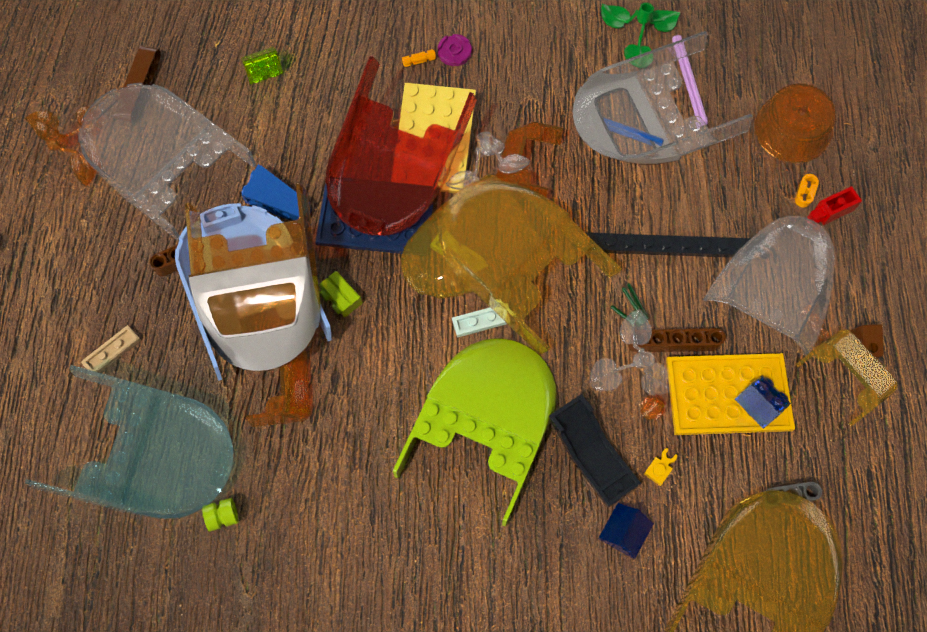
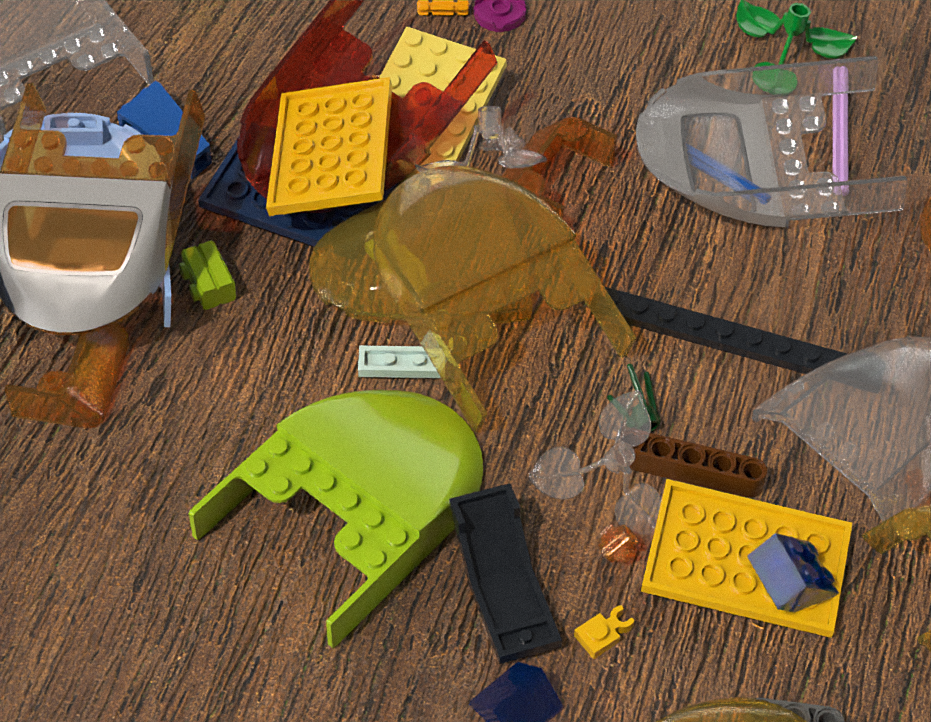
camera: 15 degrees right, 15 degrees down
(390, 187) = (330, 147): none -> yellow plate

